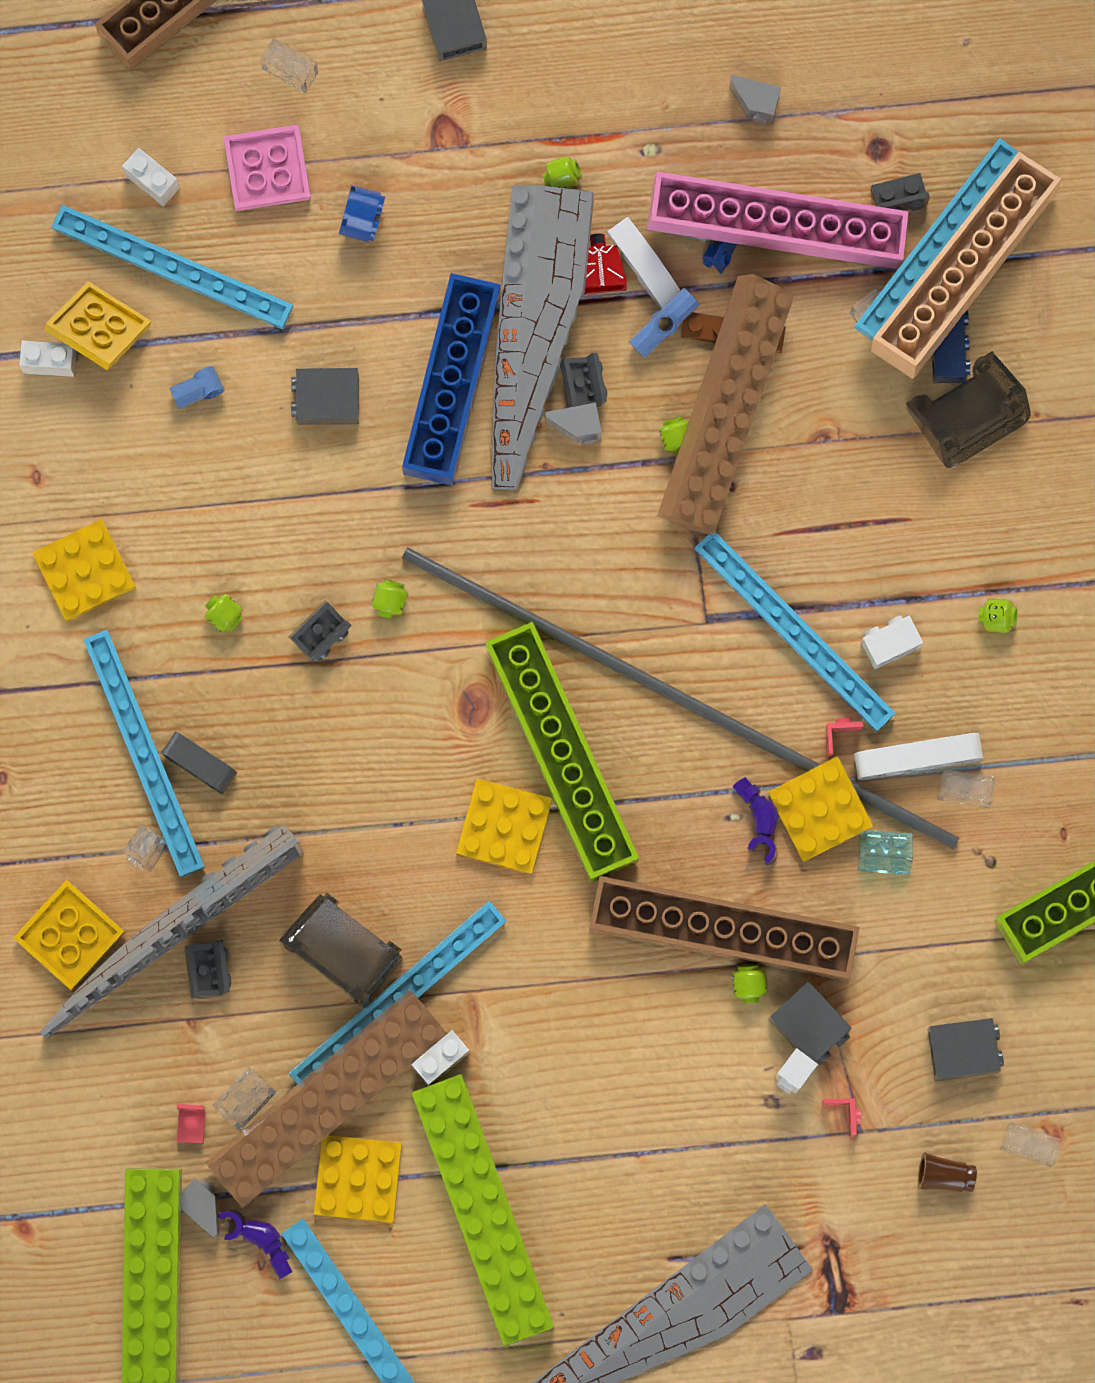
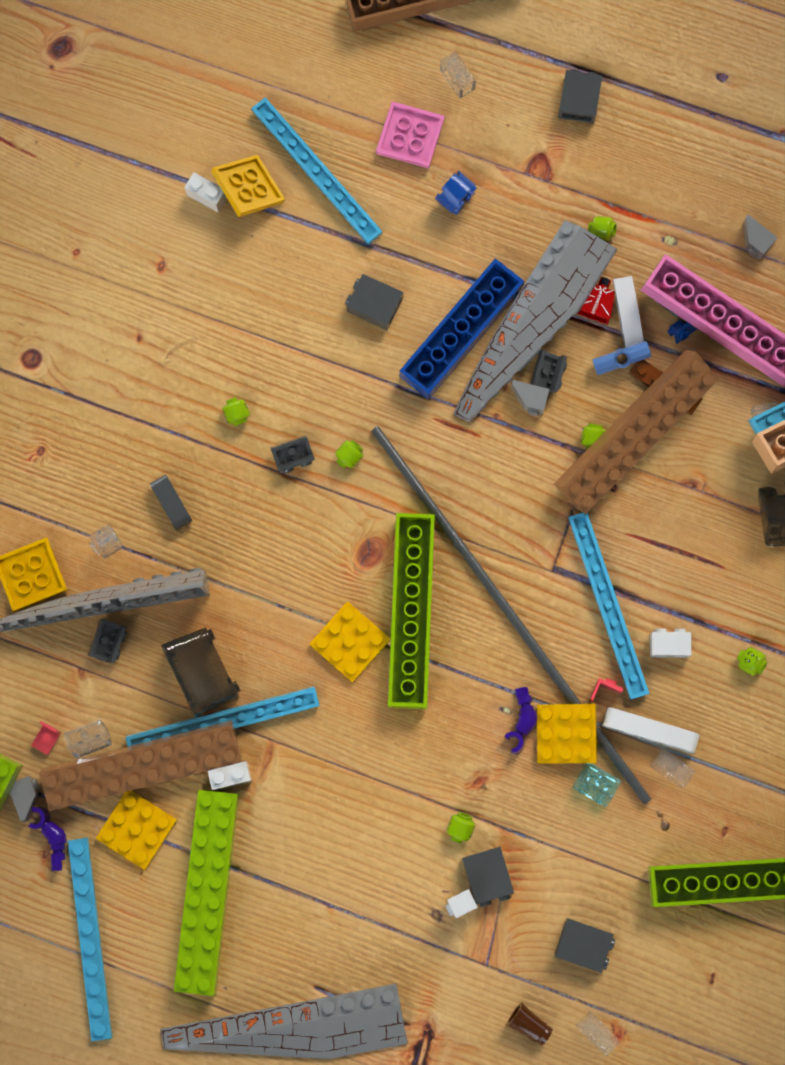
camera: 30 degrees right, 0 degrees up
(84, 570) = (160, 341): yellow plate -> none
(144, 753) = (138, 479): medium azure plate -> none
(150, 177) = (331, 105): white brick -> none
(203, 385) = (298, 256): medium blue piece -> none
(724, 929) = (461, 783): medium nougat brick -> none
(853, 1113) = (487, 951): coral bracket -> none

